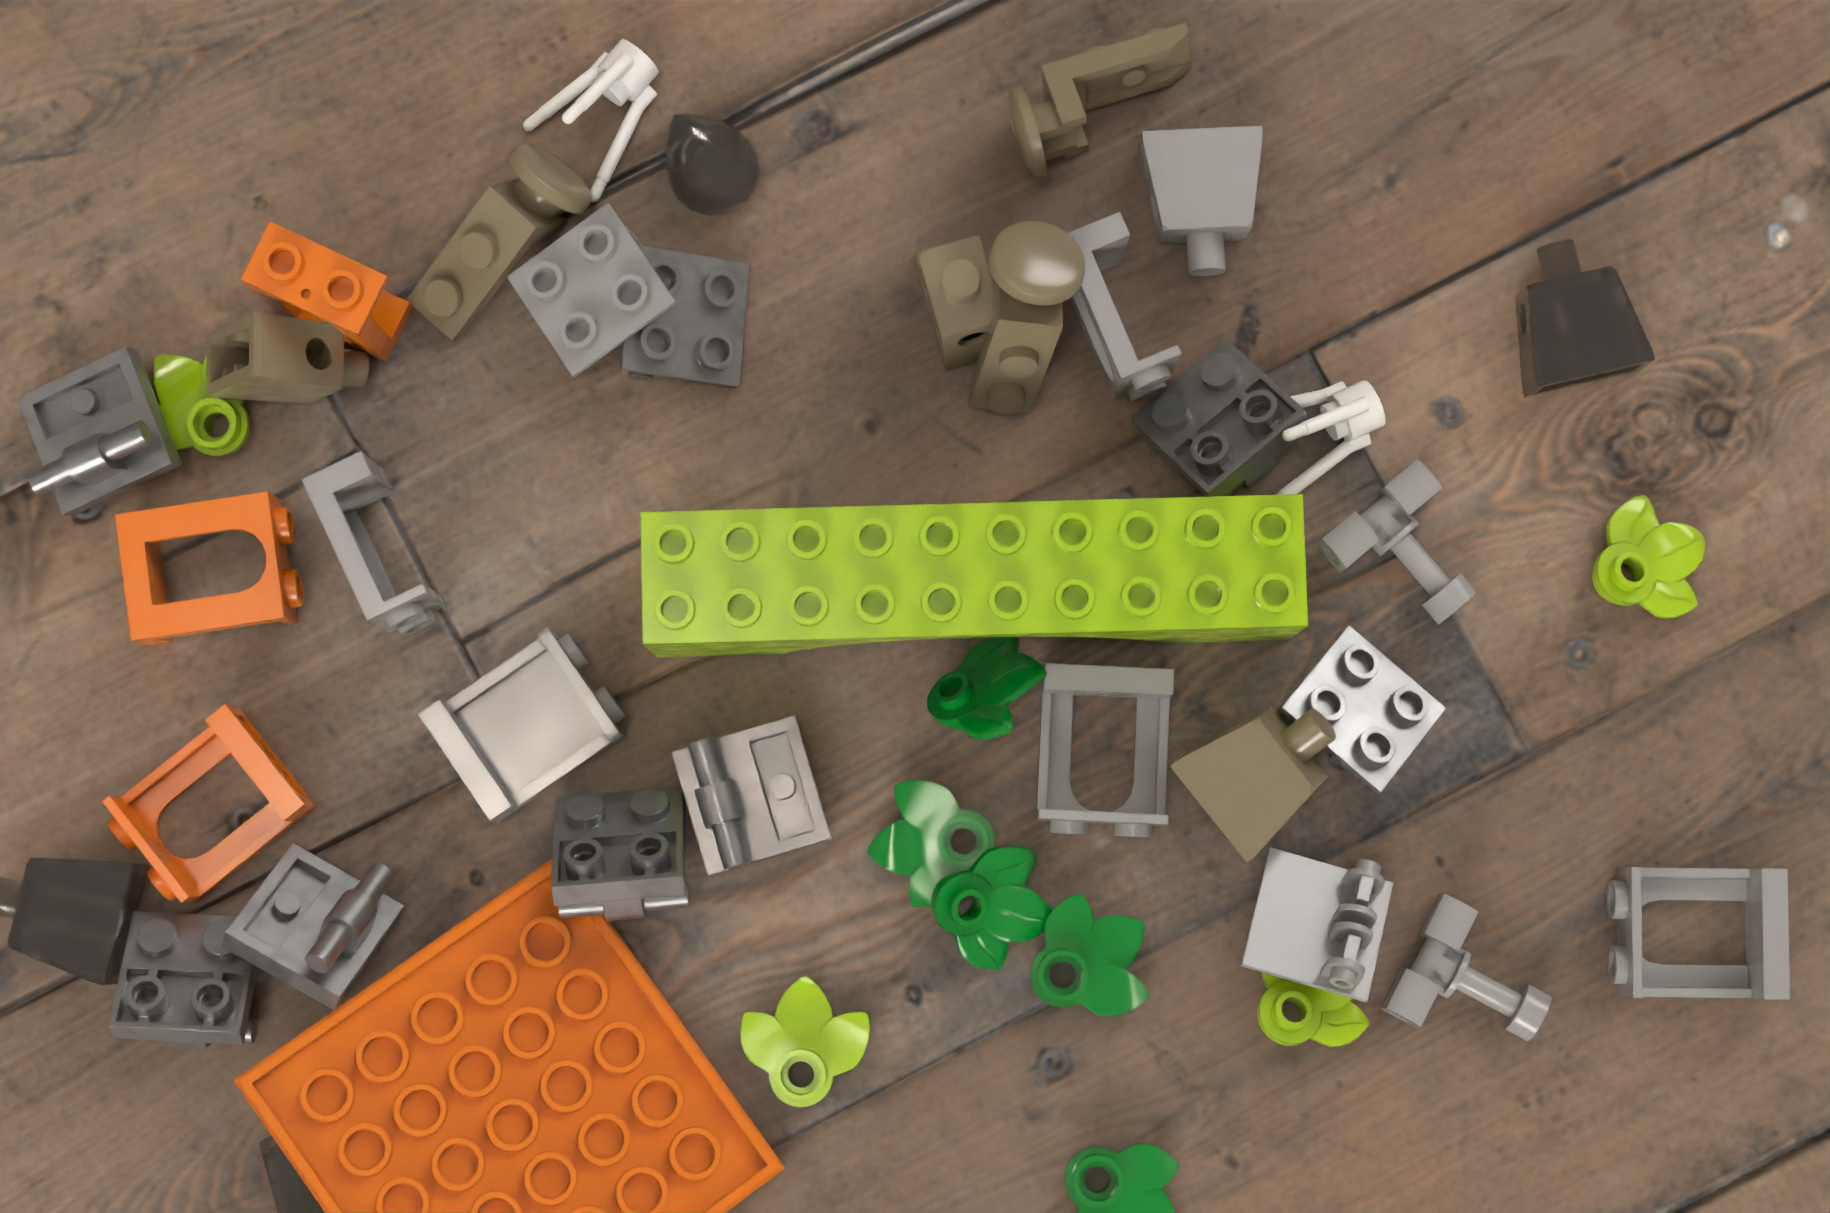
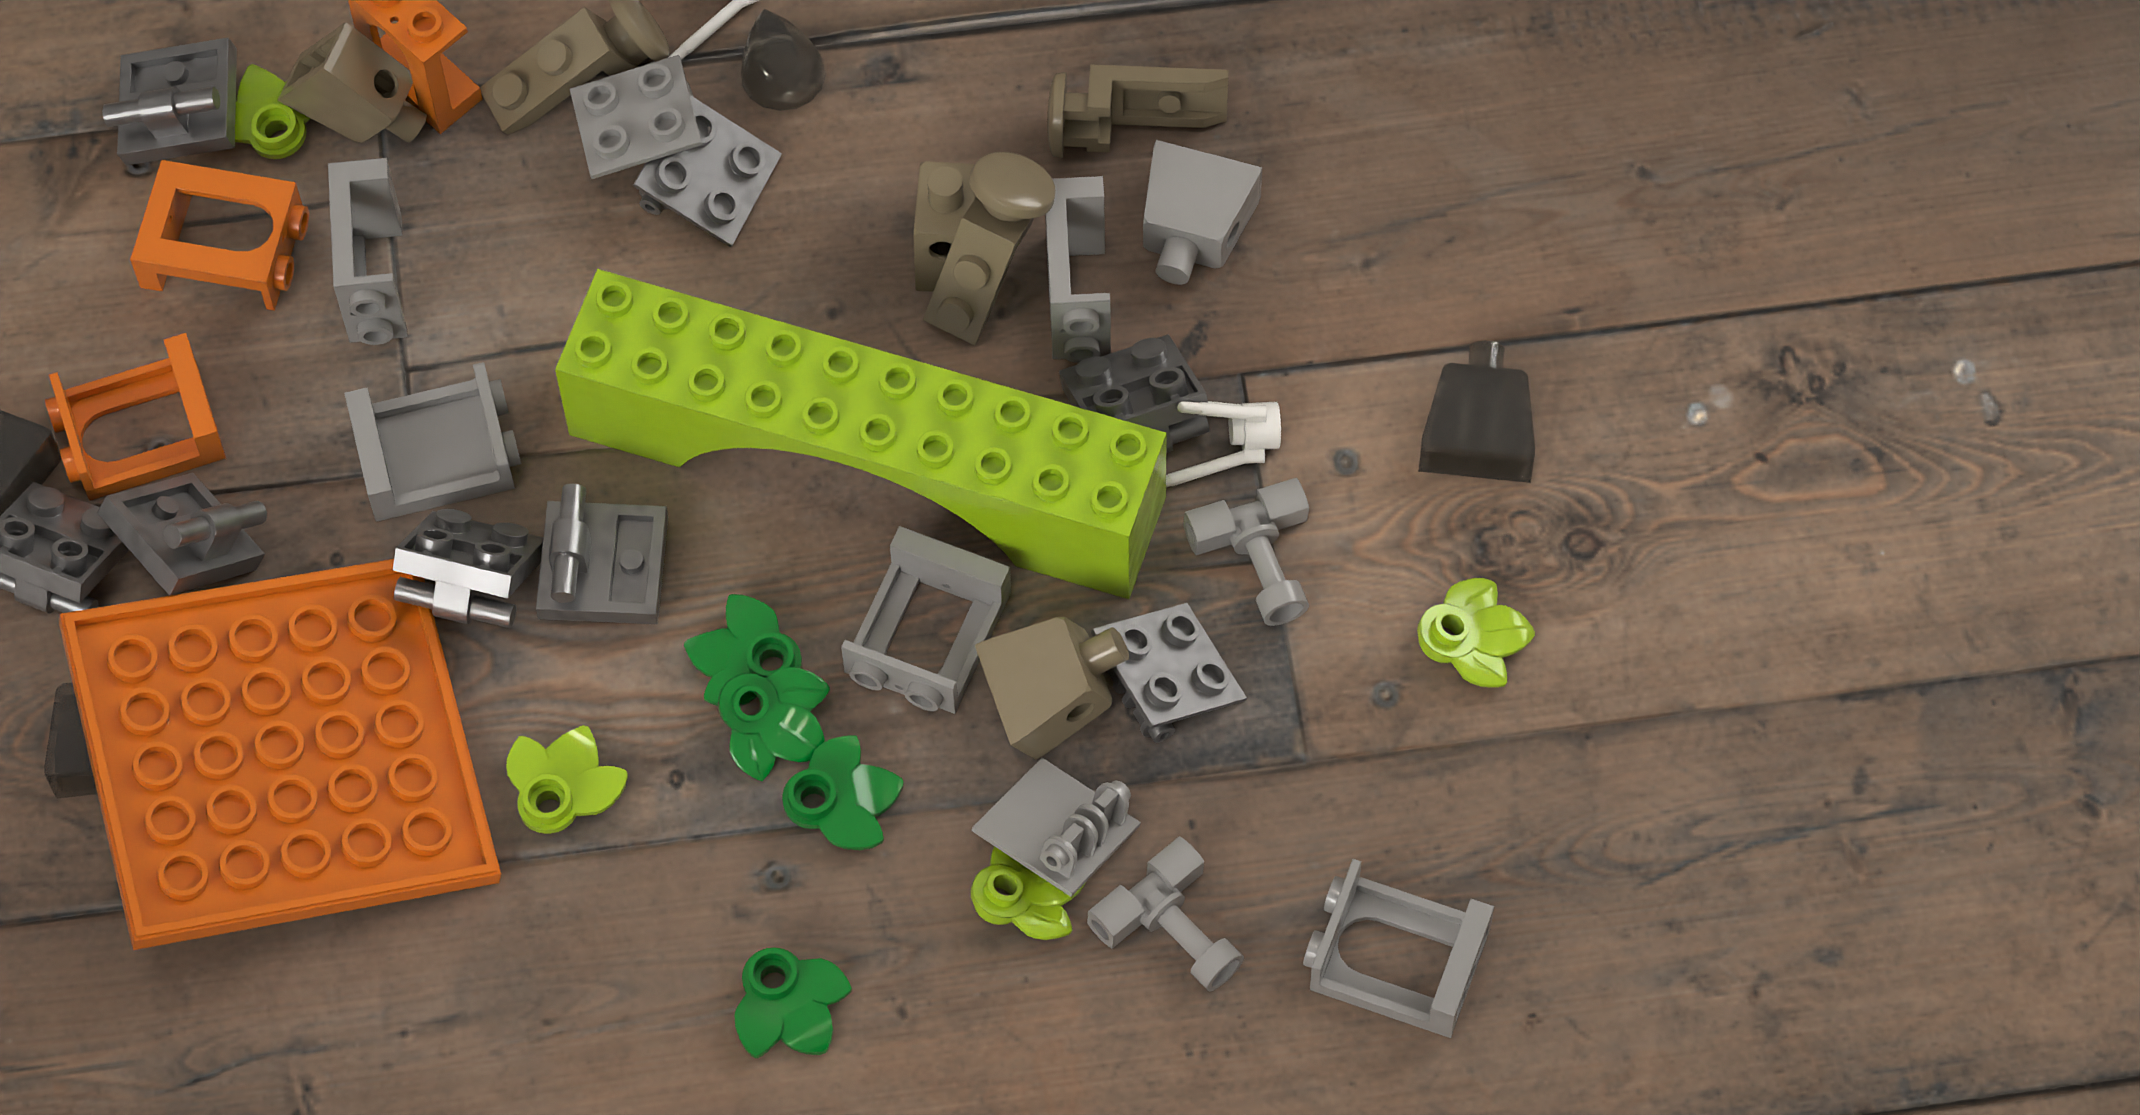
camera: 20 degrees right, 20 degrees down
(983, 687) = (831, 543): green plate -> none

